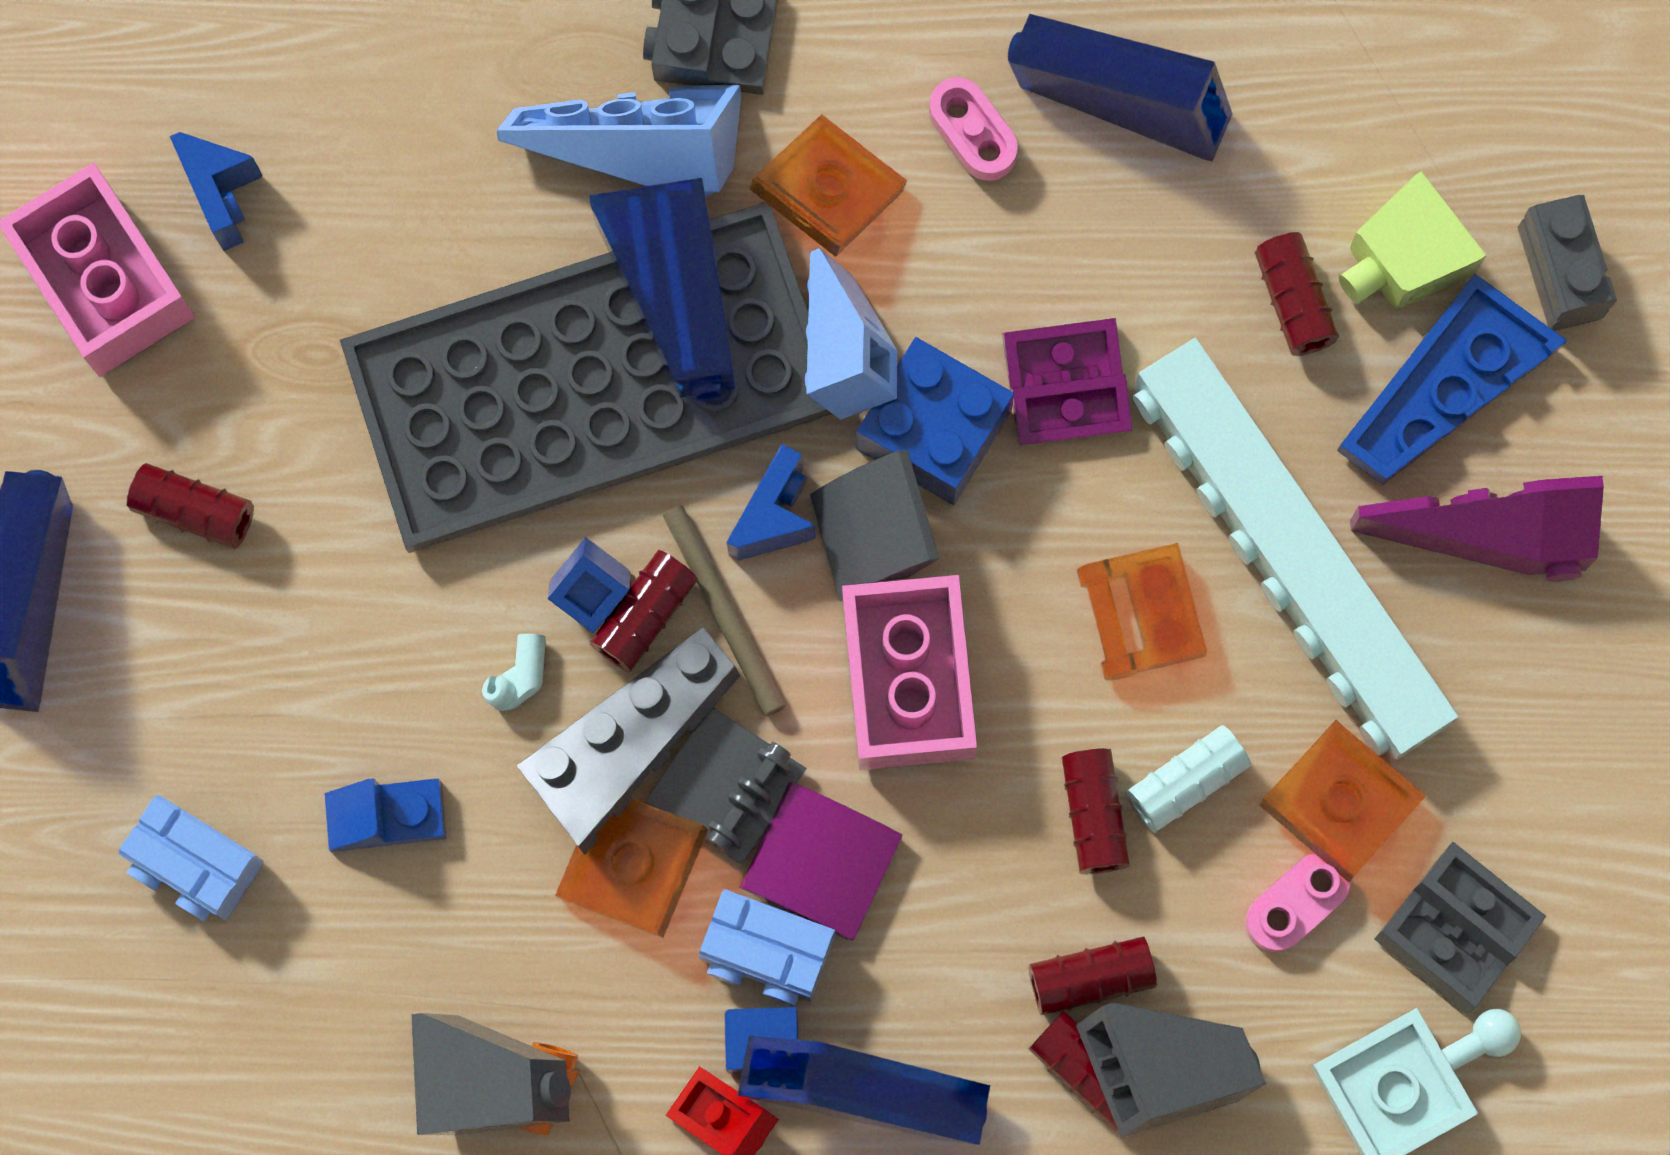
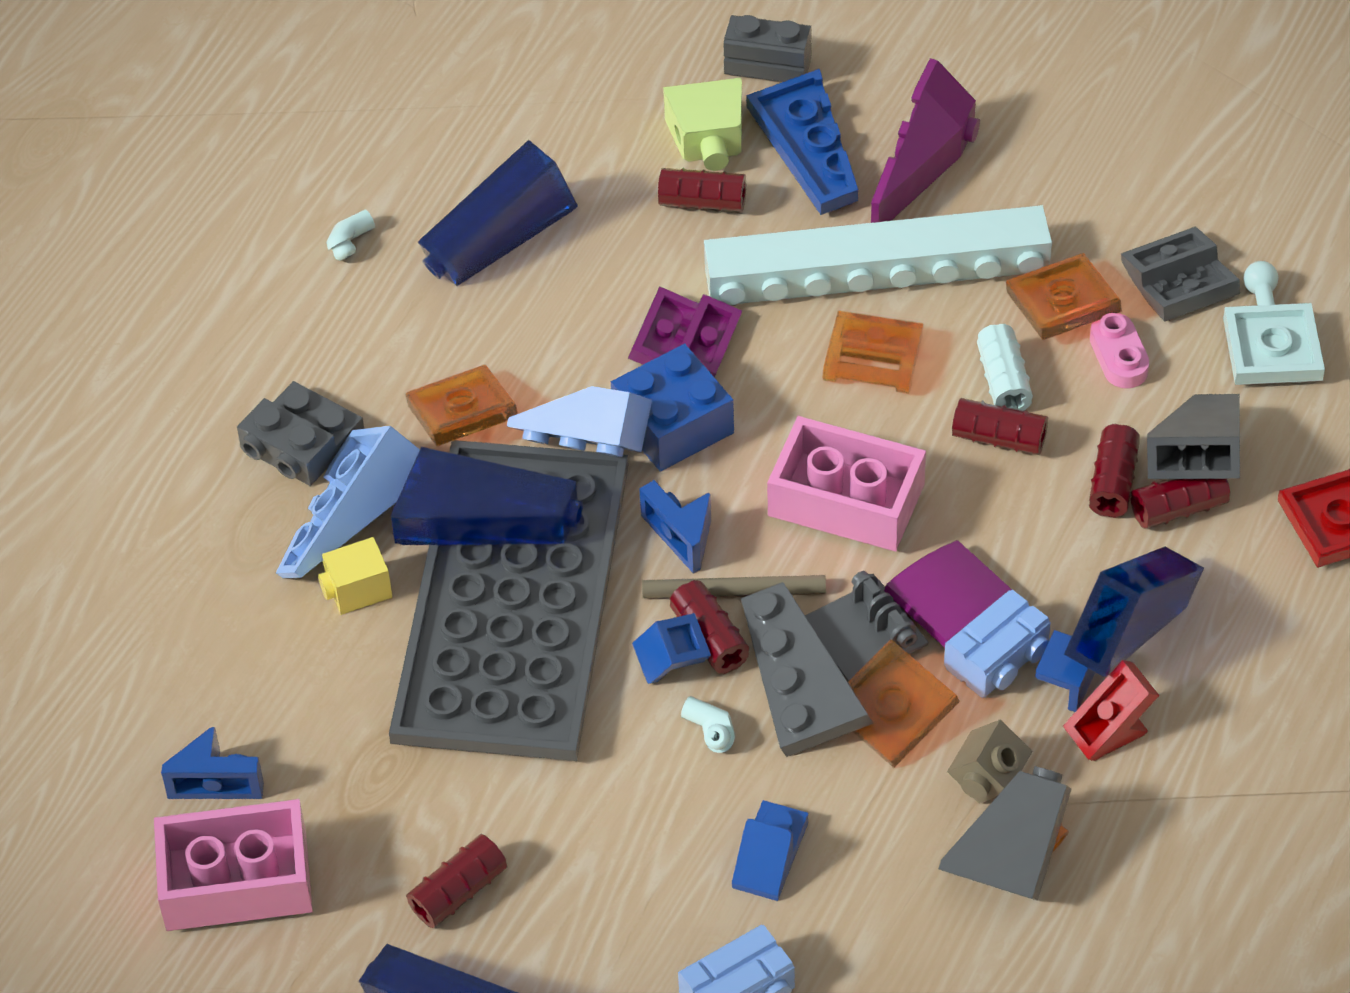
camera: 65 degrees left, 25 degrees down
(534, 195) = (355, 576): none -> light yellow brick
(585, 1009) = (989, 761): none -> dark tan brick
(874, 523) = (730, 461): dark grey slope -> none
(975, 131) = (473, 314): bright pink plate -> none

